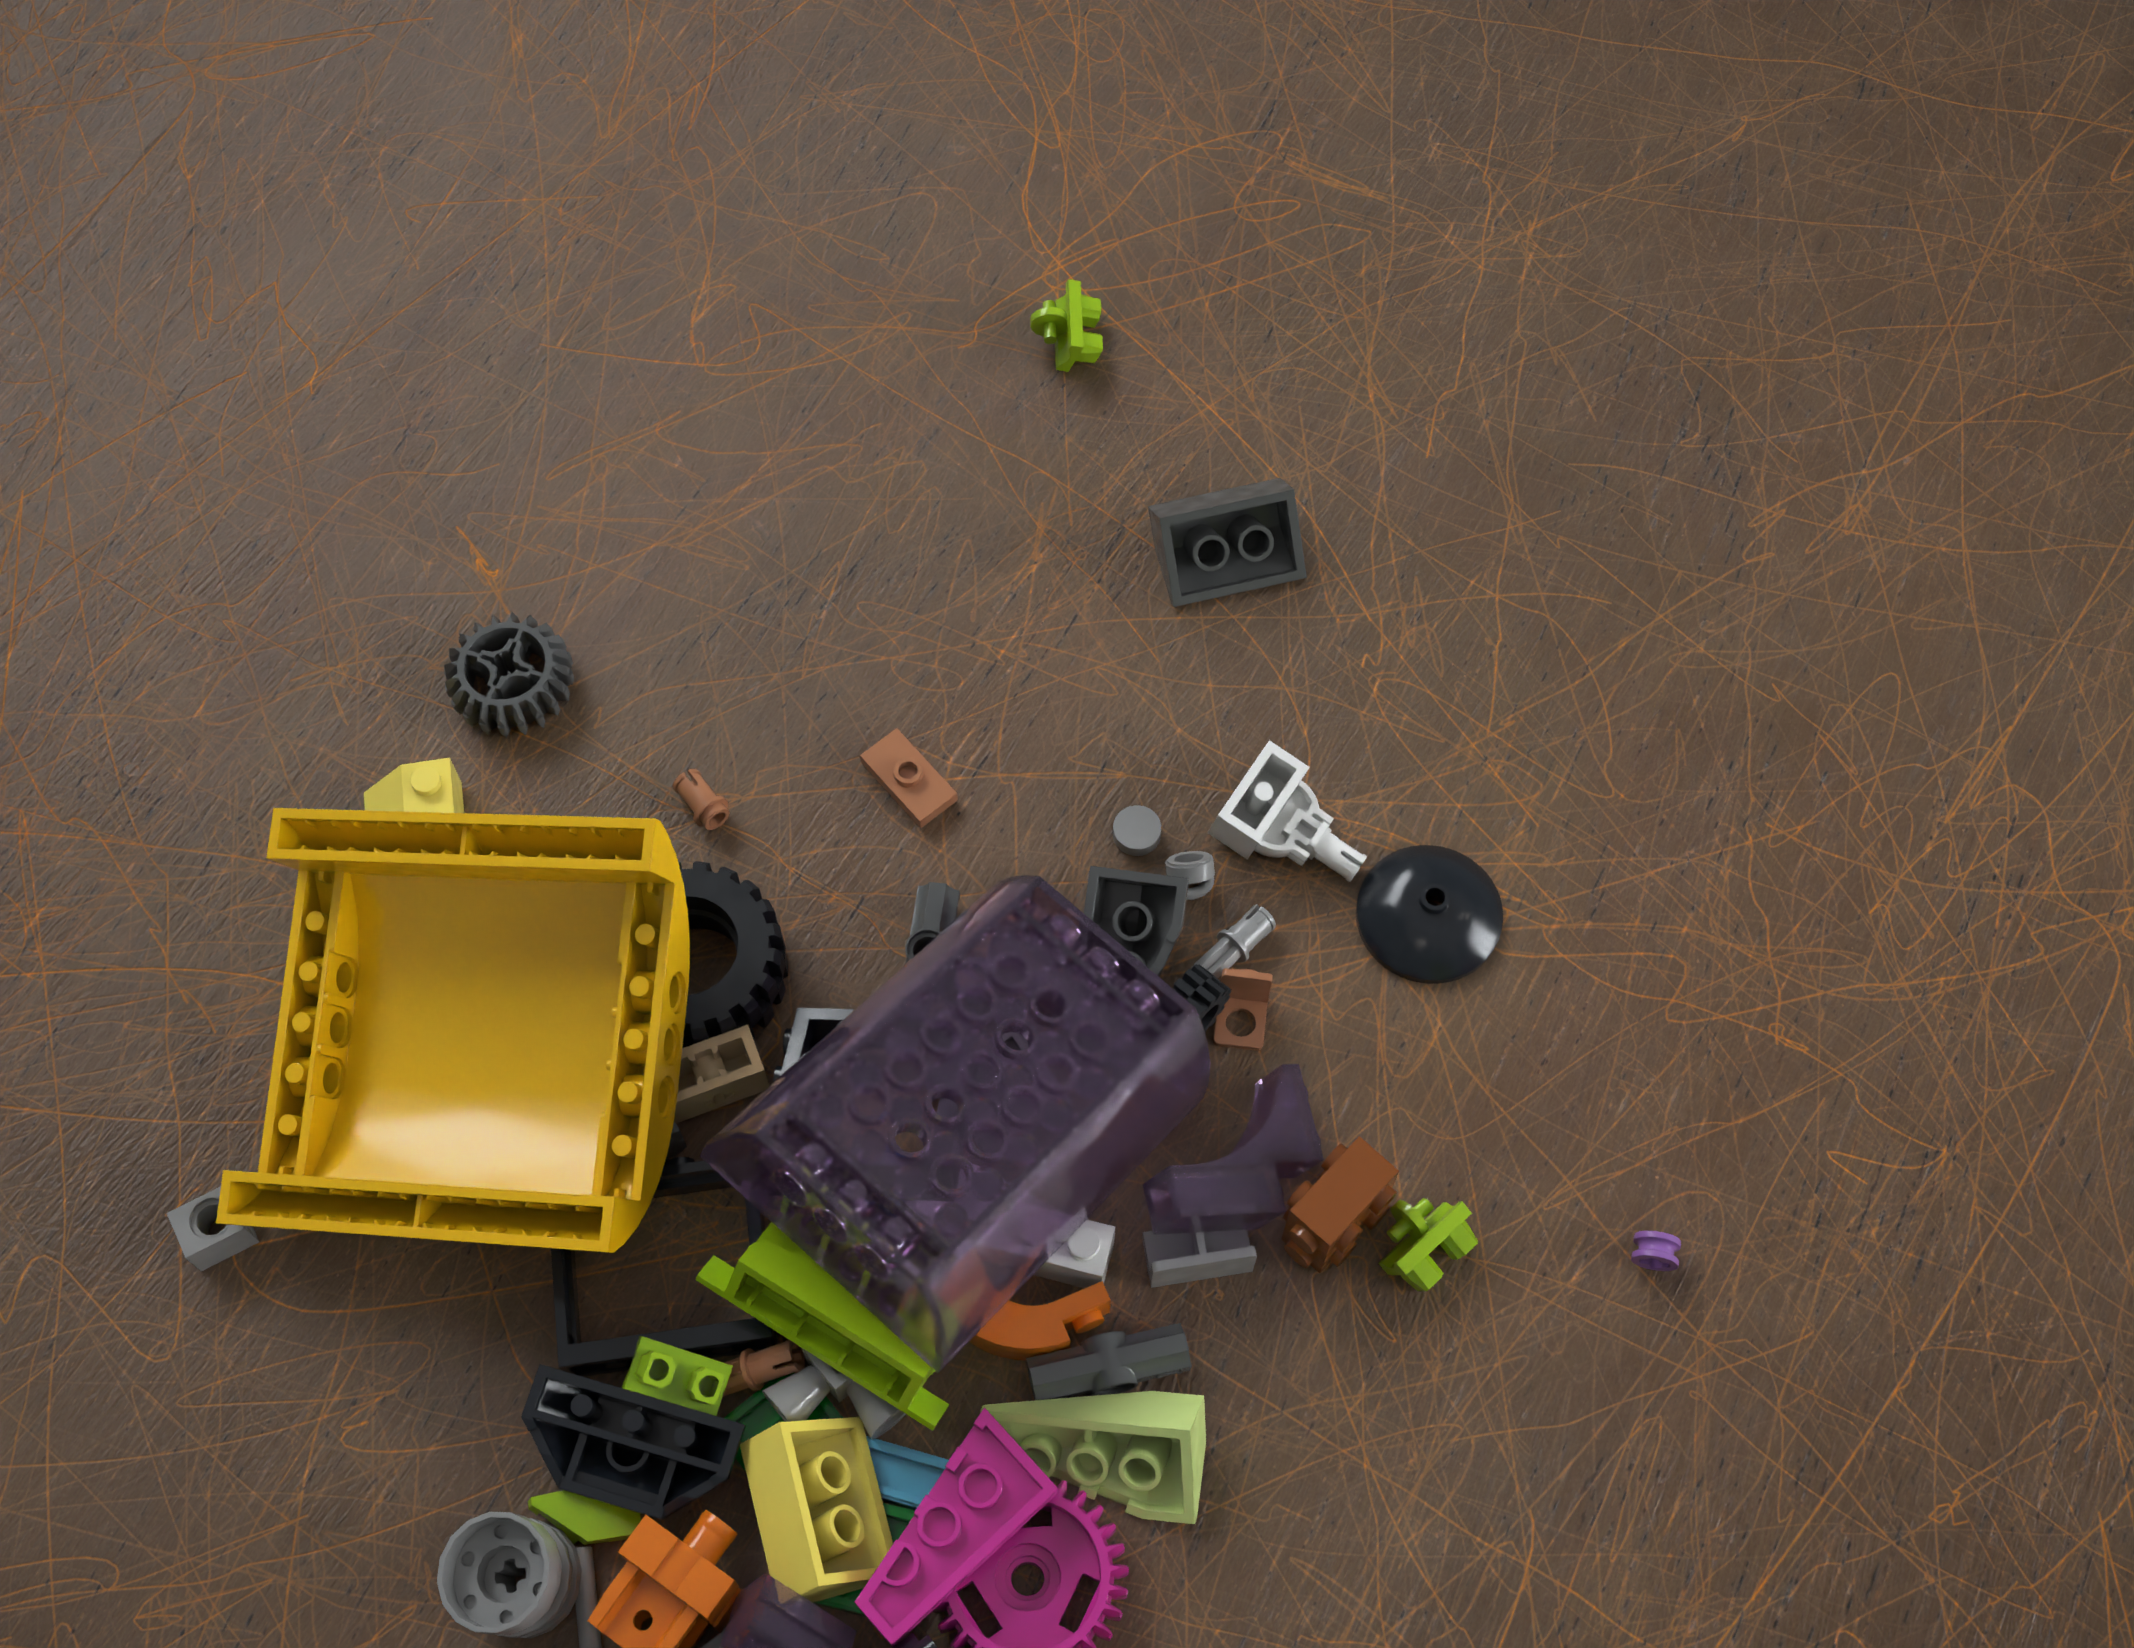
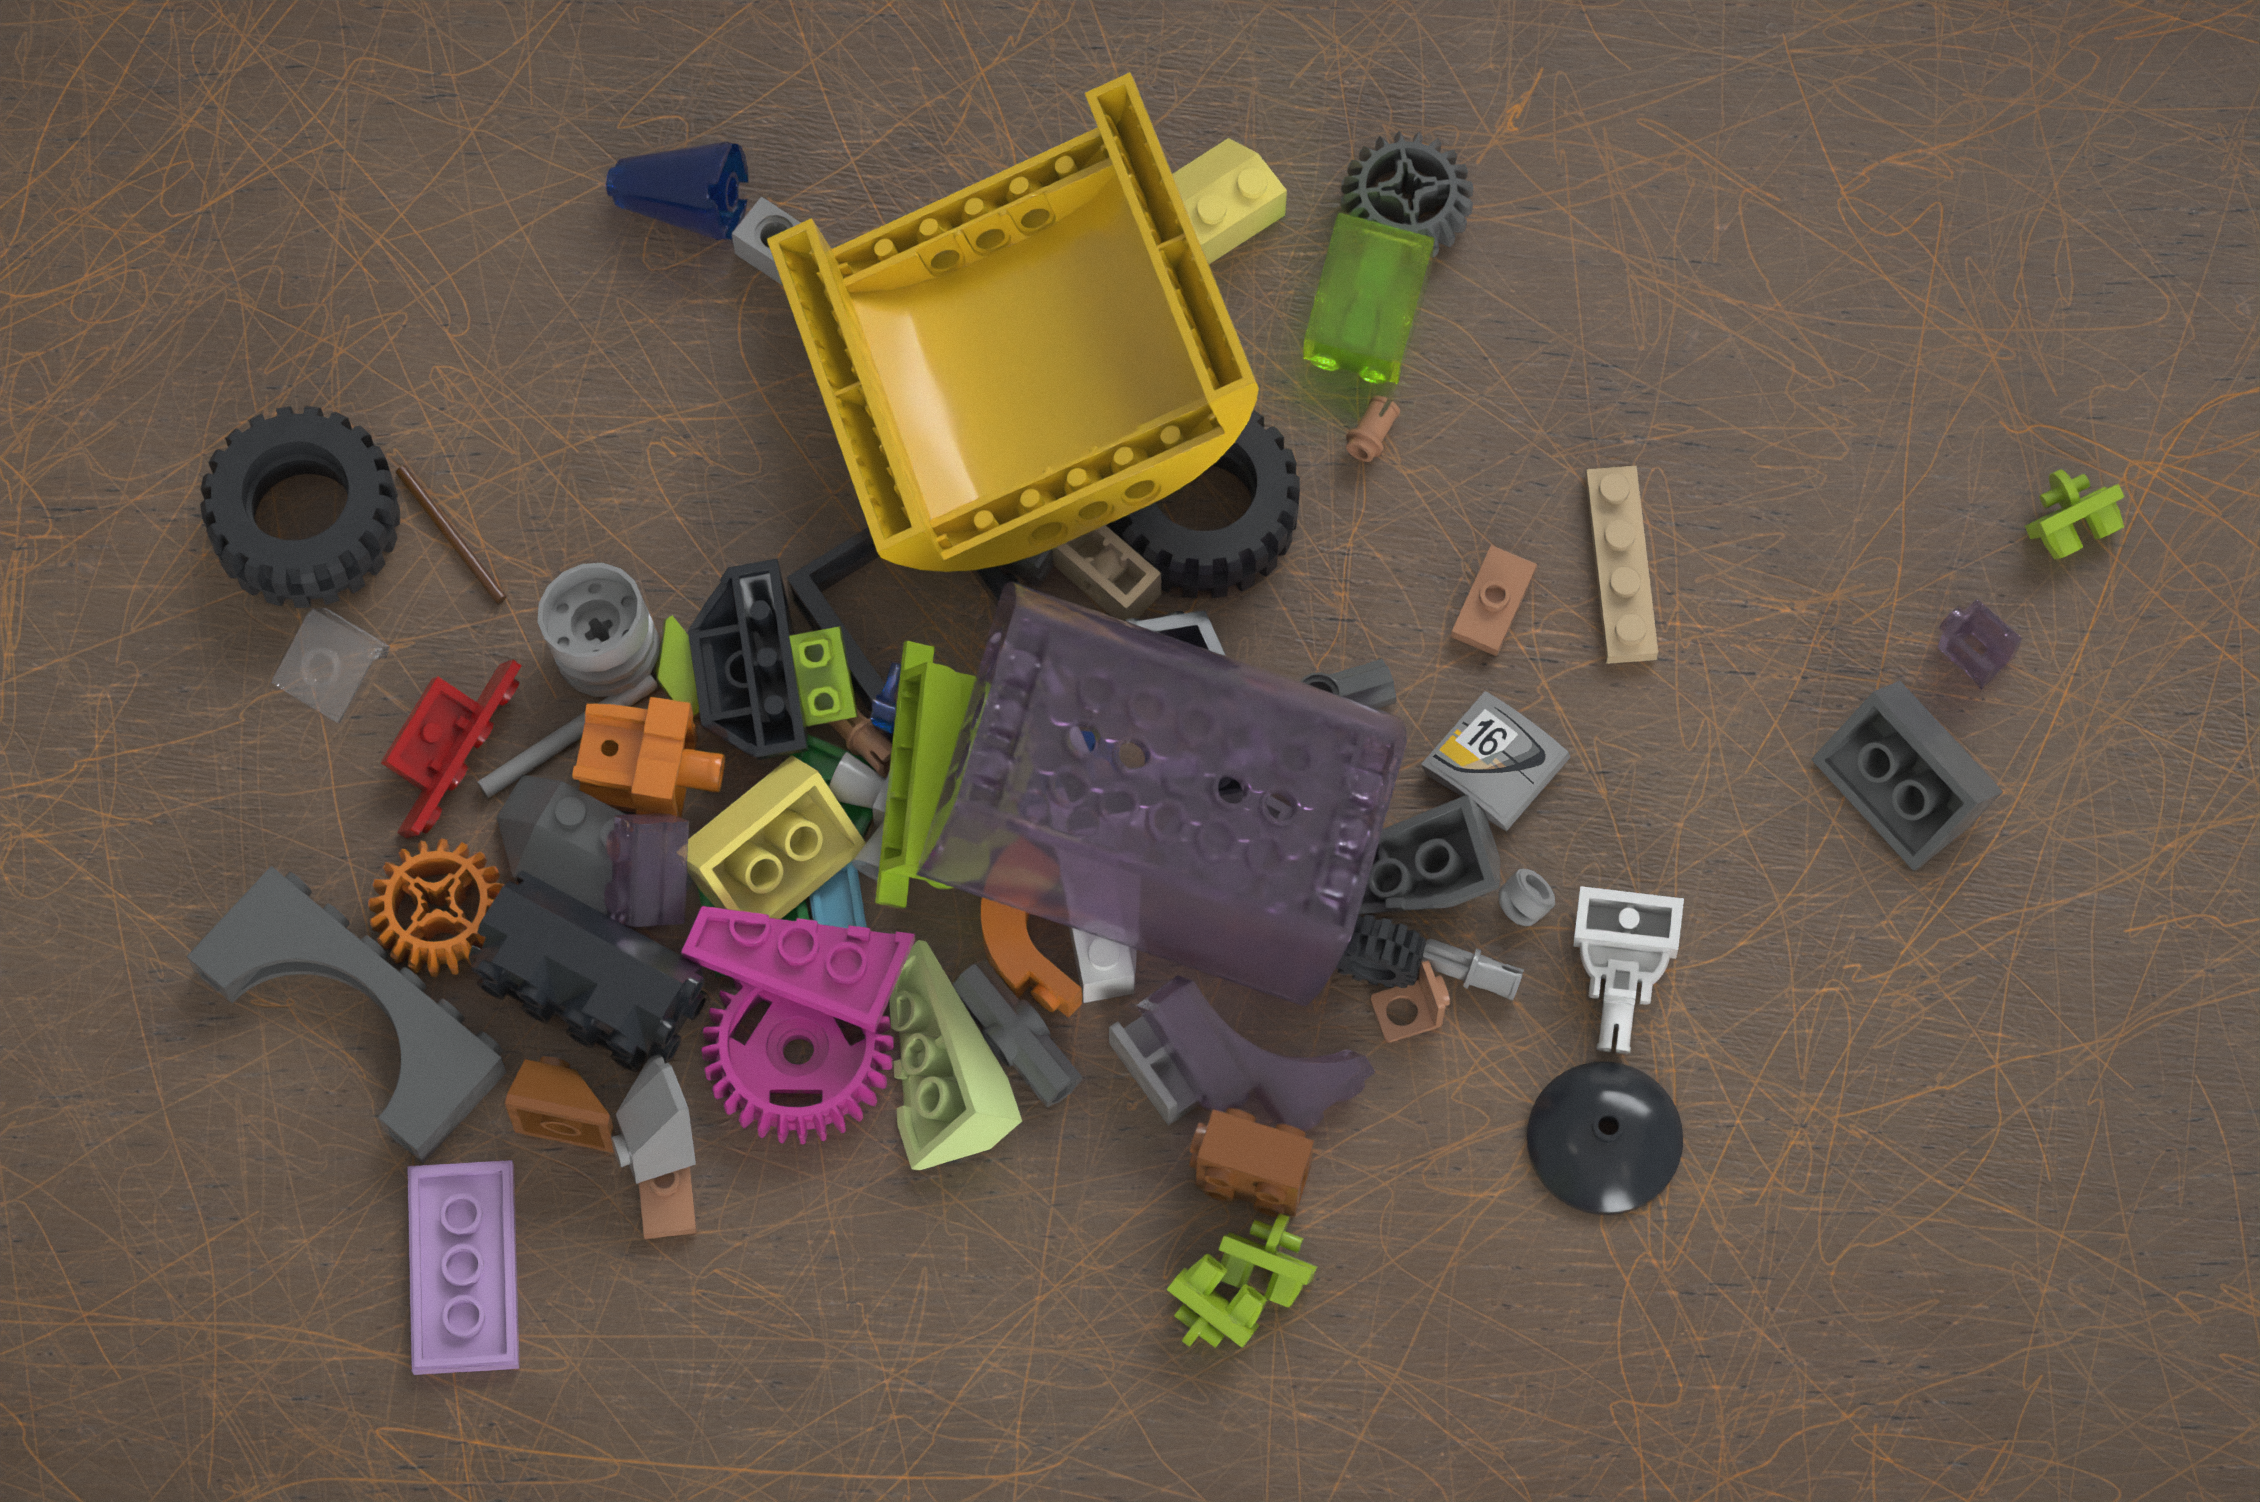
camera: 65 degrees right, 5 degrees up
(109, 1284) = (685, 187): none -> clear blue cone
(585, 741) = (1368, 299): none -> clear neon green slope
(745, 1334) = (883, 705): none -> clear blue hand
(930, 666) = (1621, 564): none -> tan plate
(1055, 836) = (1496, 760): none -> light grey slope
(1136, 427) = (1987, 628): none -> window
(1136, 830) = (1548, 831): light grey tile -> none
(1456, 1313) = (1233, 1318): none -> lime hips
(1656, 1250) = (1360, 1472): medium lavender bush -> none

